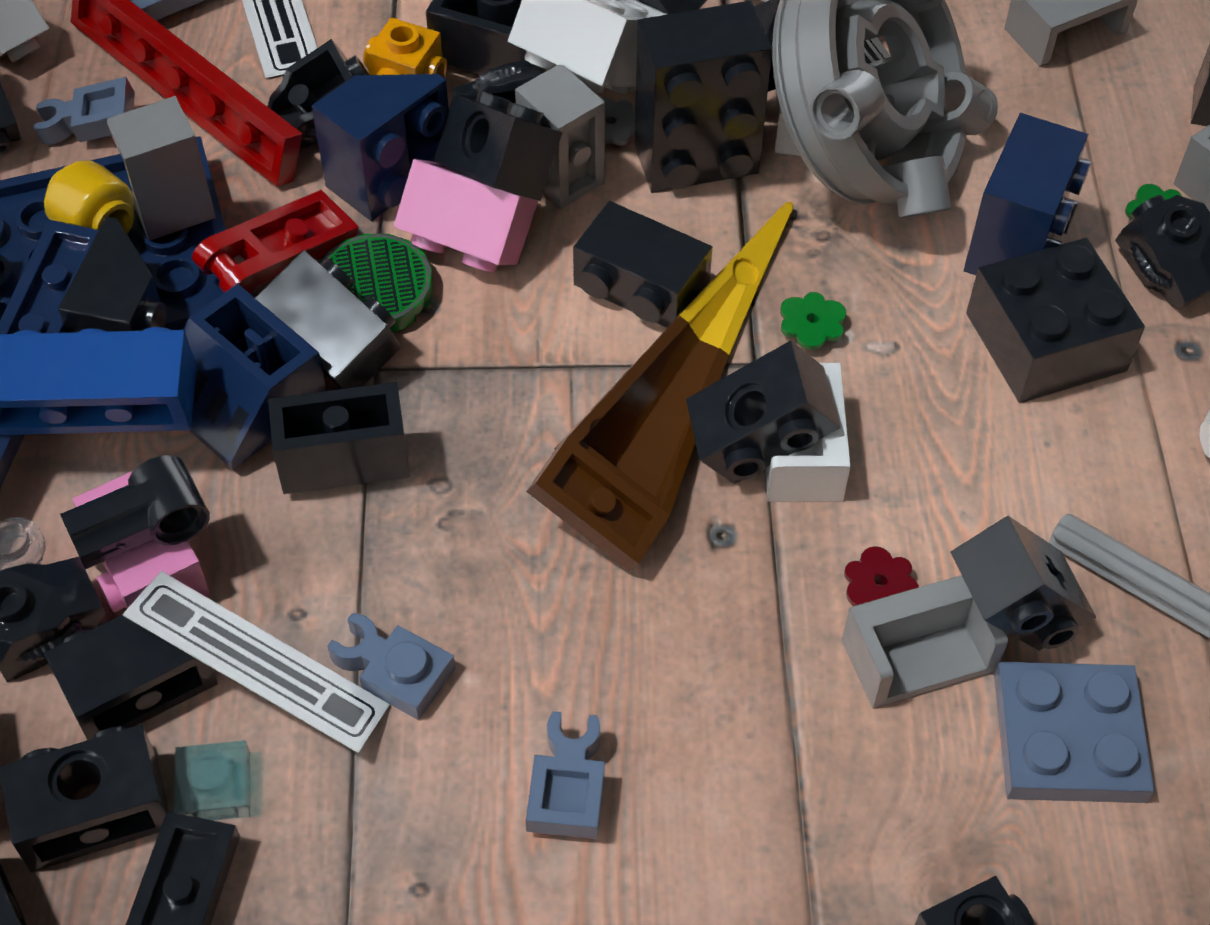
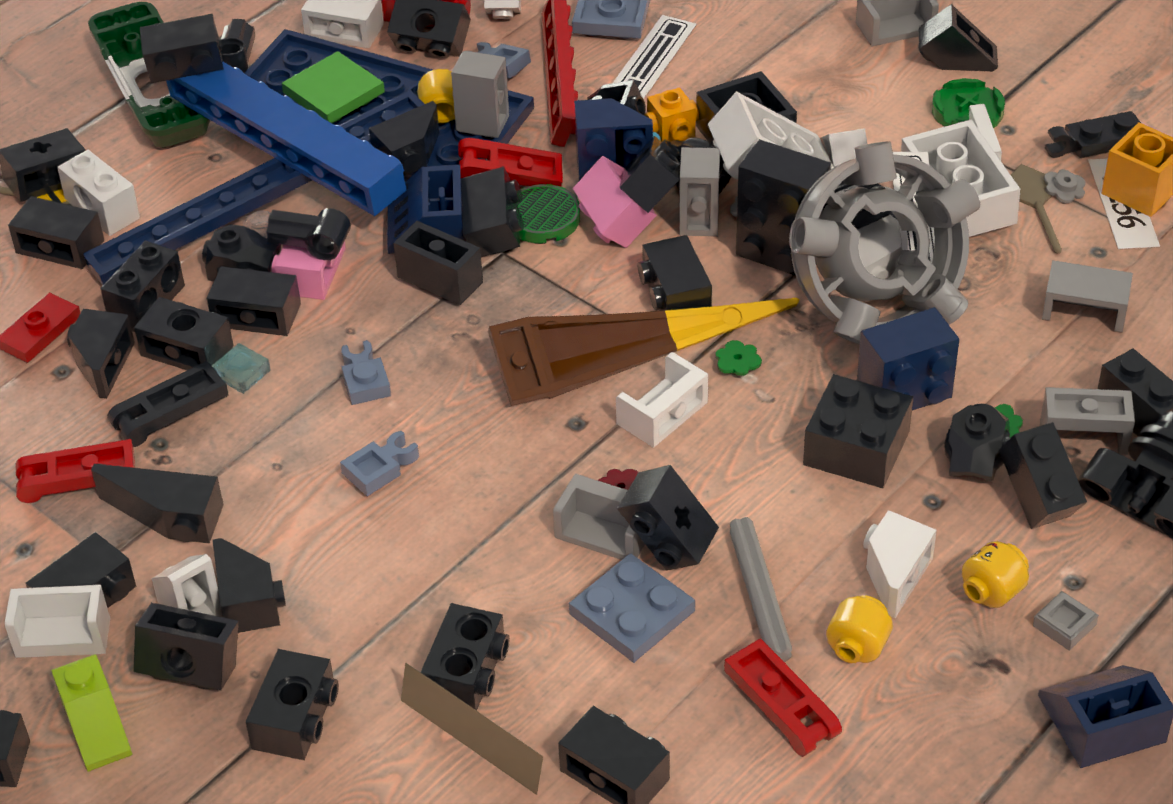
camera: 45 degrees right, 10 degrees down
(257, 661) = (303, 329): white sticker -> none
(762, 412) = (641, 369): black brick -> none

